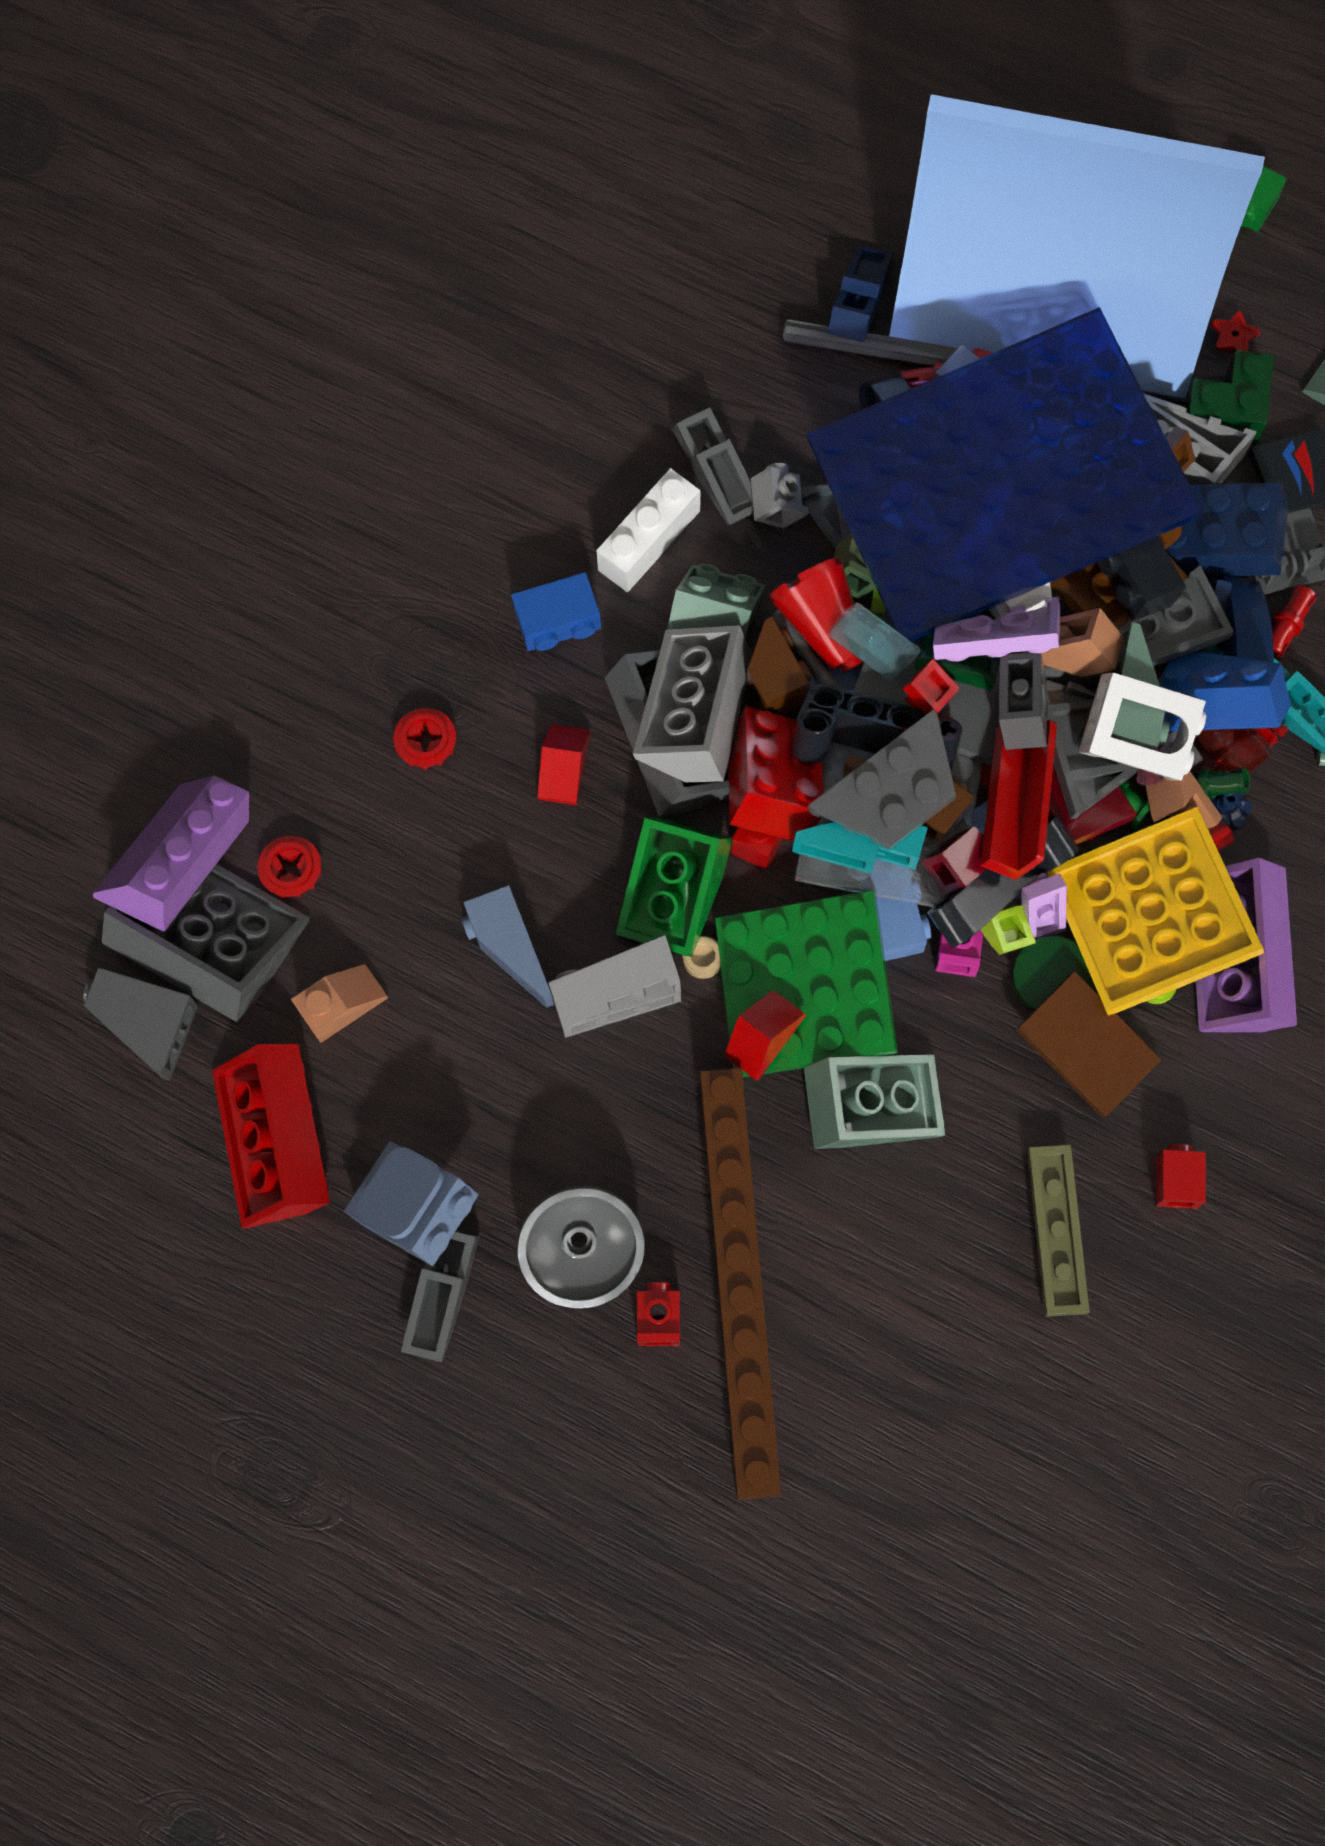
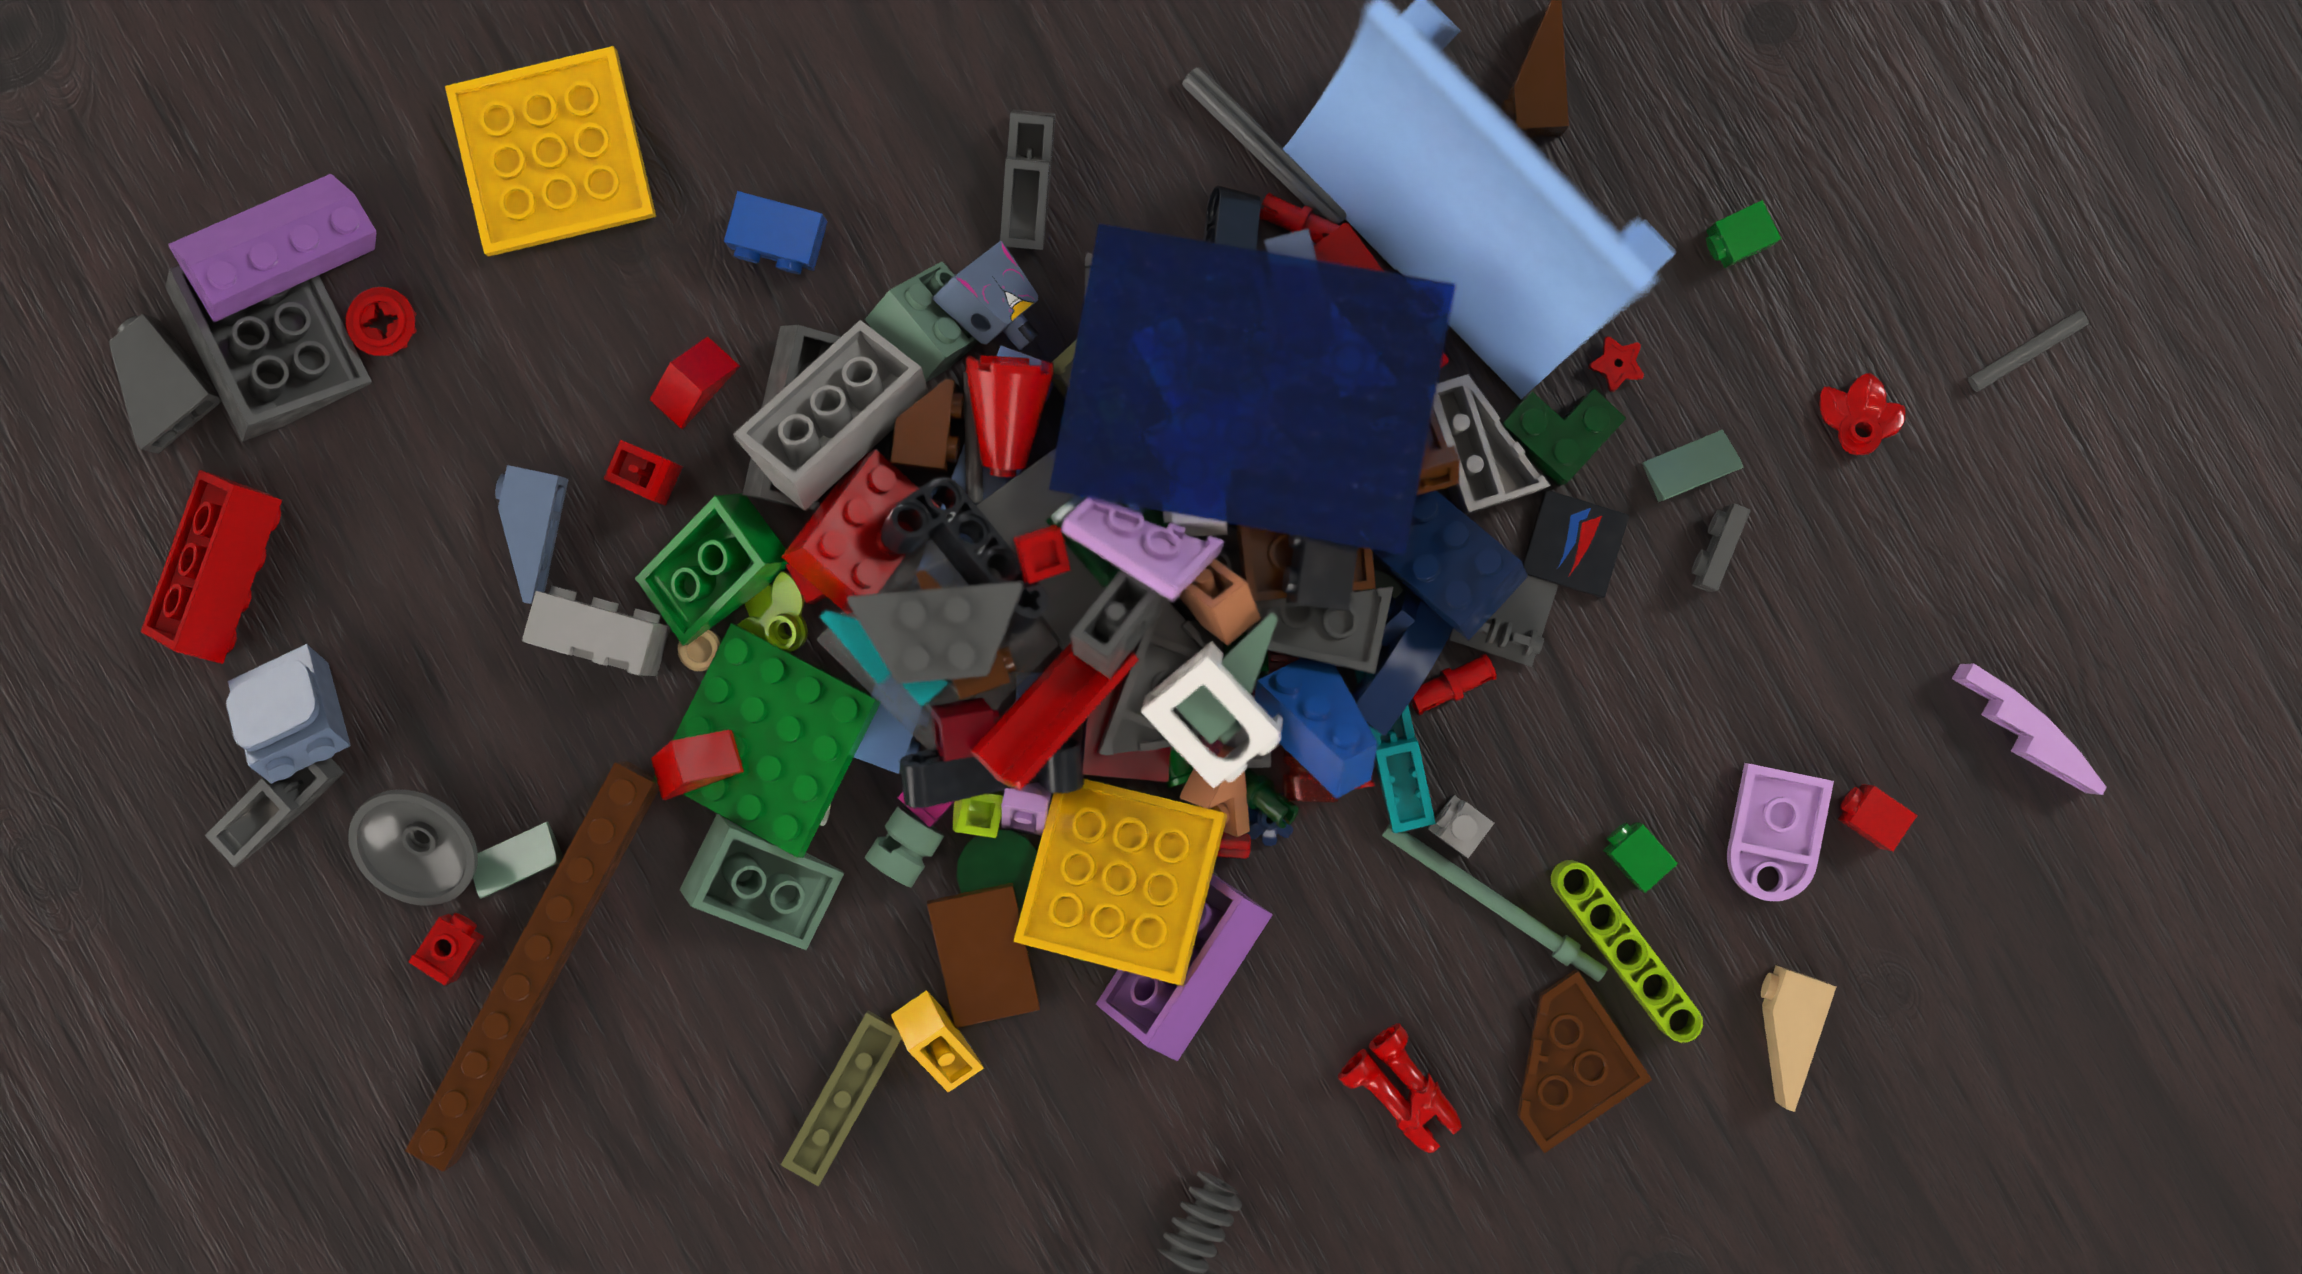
camera: 30 degrees right, 15 degrees up
(338, 1000) = (345, 480): nougat slope -> none
(343, 663) = (550, 151): none -> yellow plate
(411, 728) = (578, 255): red gear -> none
(569, 849) = (643, 472): none -> red slope
(648, 530) = (916, 203): white brick -> none
(668, 1211) = (516, 860): none -> sand green slope
(740, 885) = (775, 607): none -> lime plate
(753, 558) = (991, 298): none -> sand blue torso
(777, 496) = (1060, 248): light grey brick -> none
(860, 293) = (1285, 85): dark blue slope -> none
(873, 641) = (1022, 471): clear light blue slope -> none
(968, 998) = (904, 846): none -> sand green wheel
(1100, 1134) = (936, 1042): none -> yellow slope
(1180, 1177) = (980, 1123): red brick -> none

